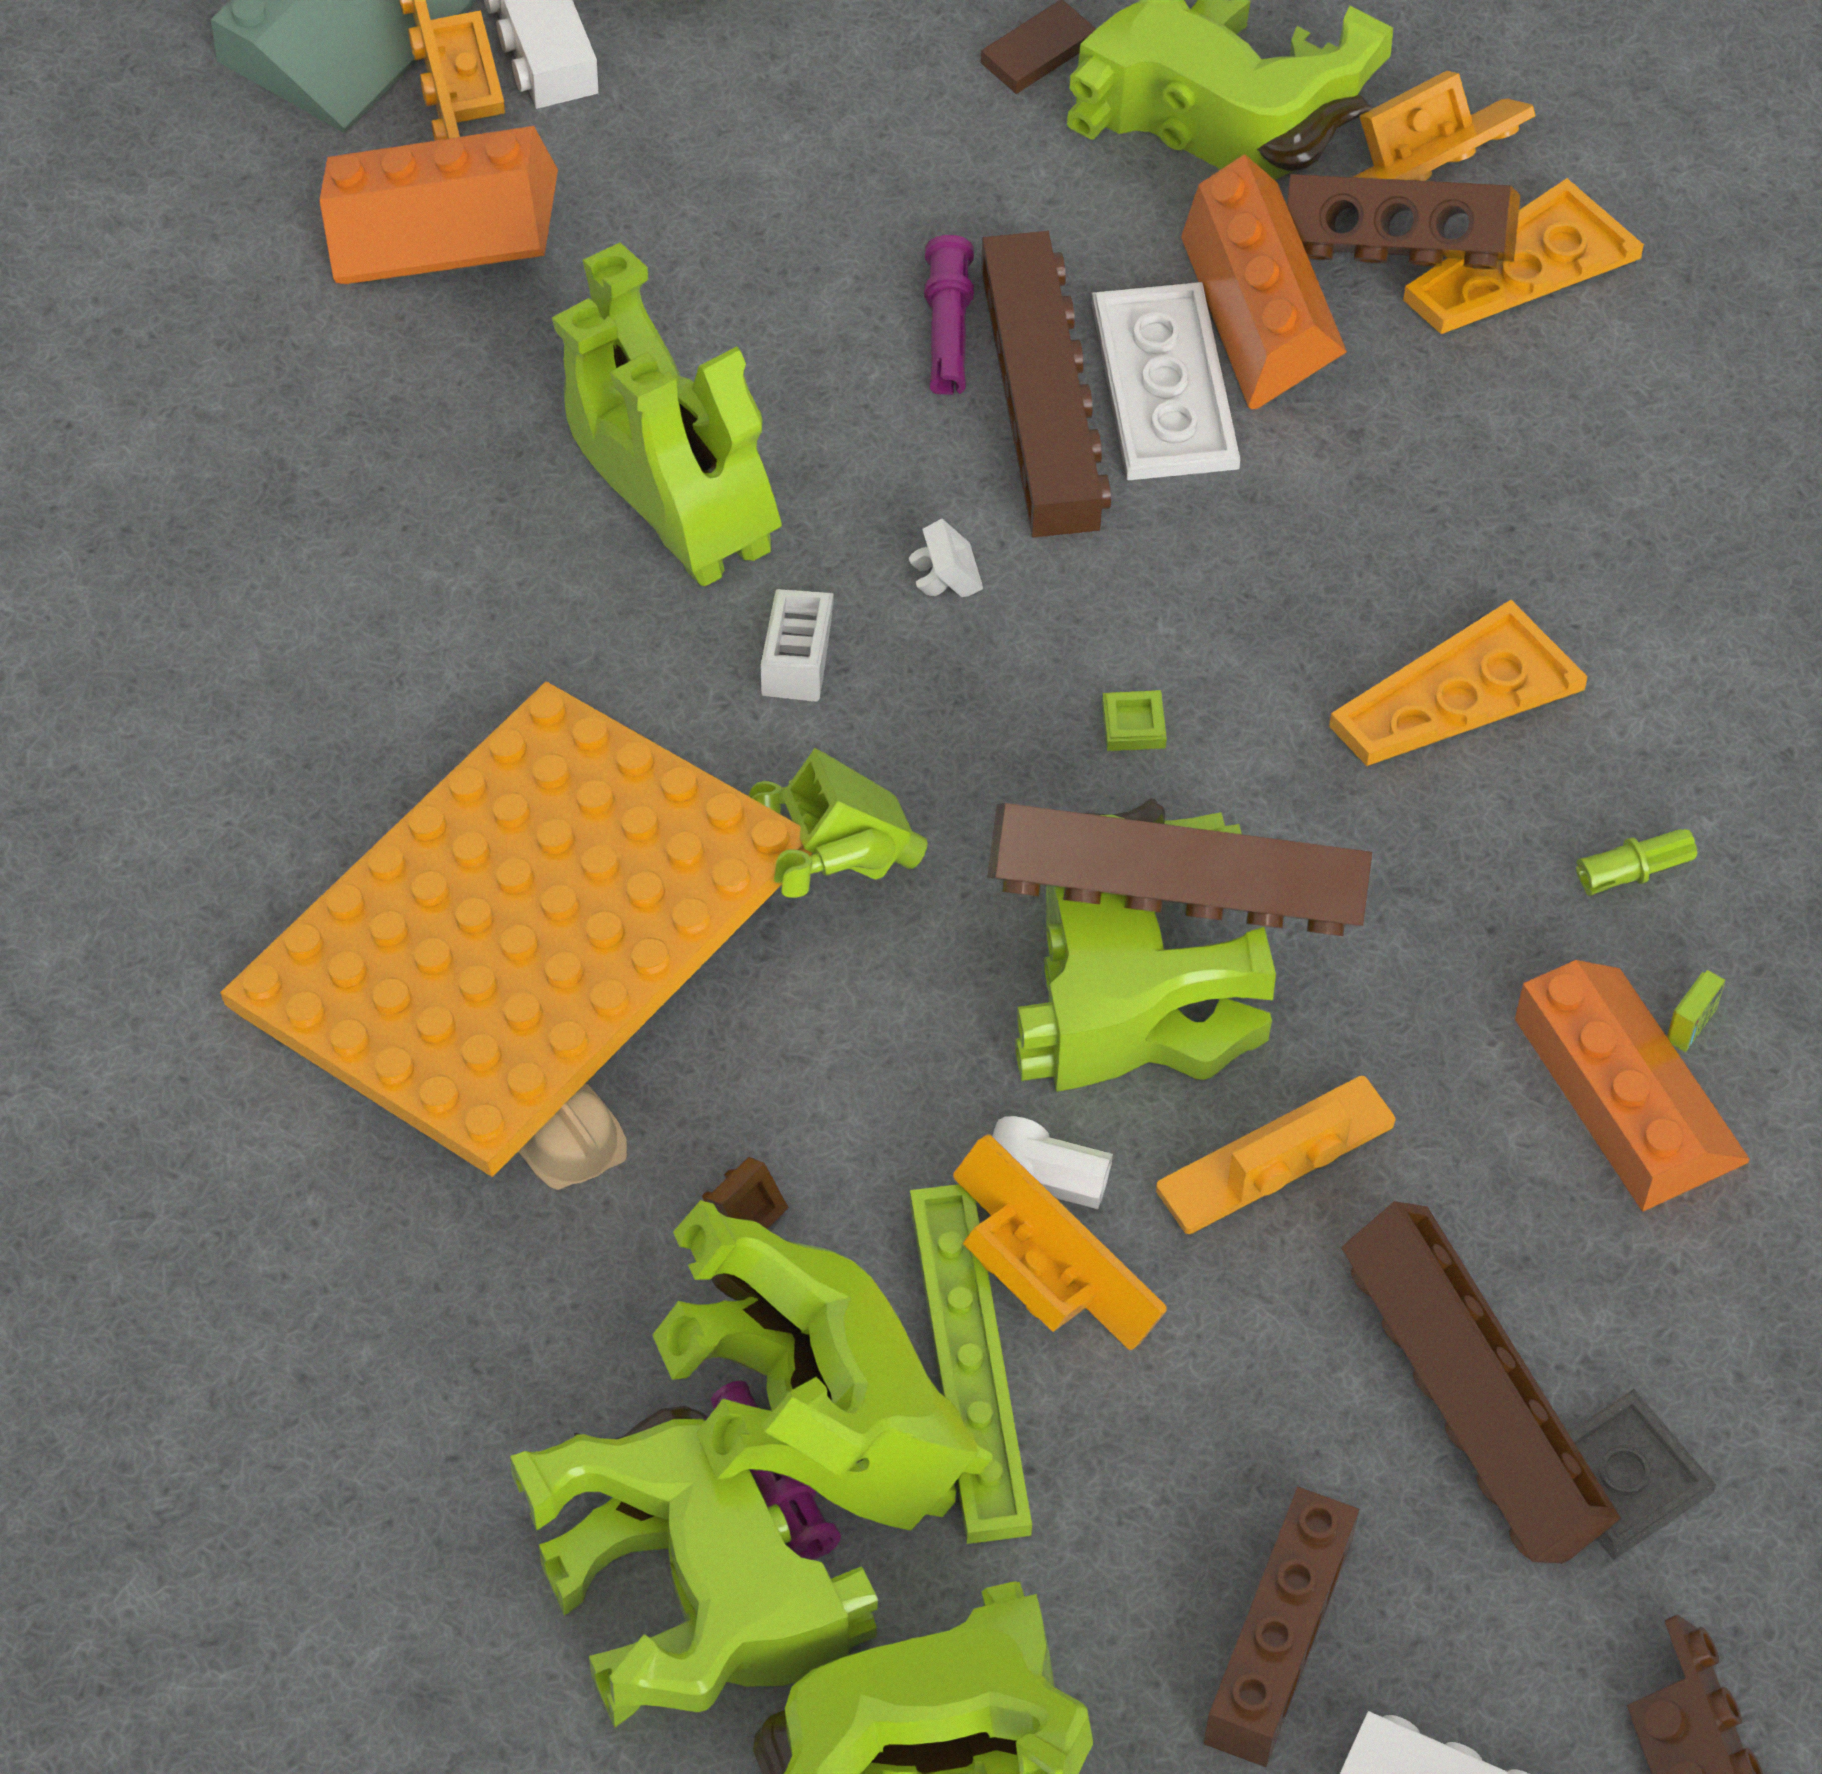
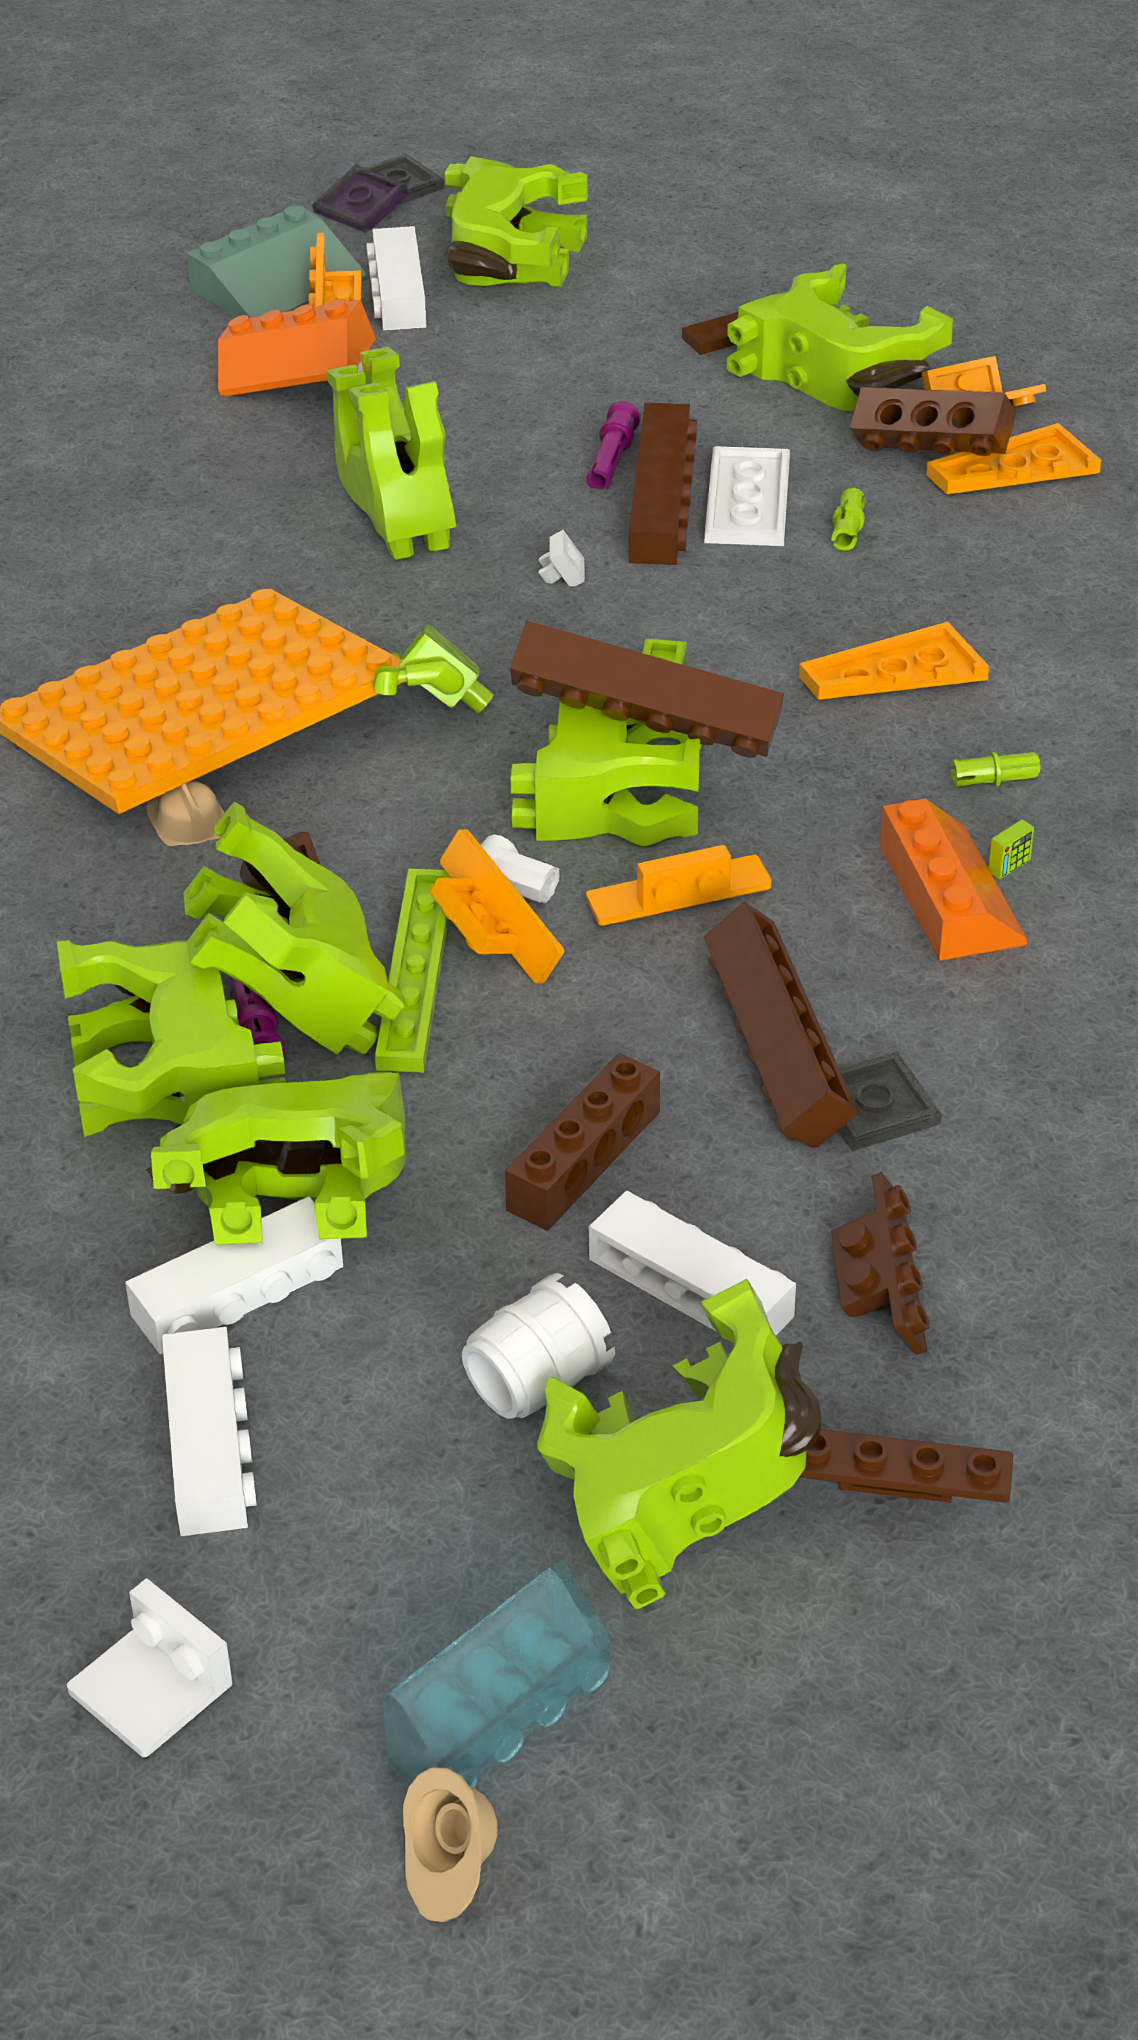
camera: 15 degrees right, 15 degrees down
(796, 675) = (444, 600): white slope -> none
(1258, 282) = (824, 441): orange slope -> none
(1320, 415) = (848, 519): none -> lime pin

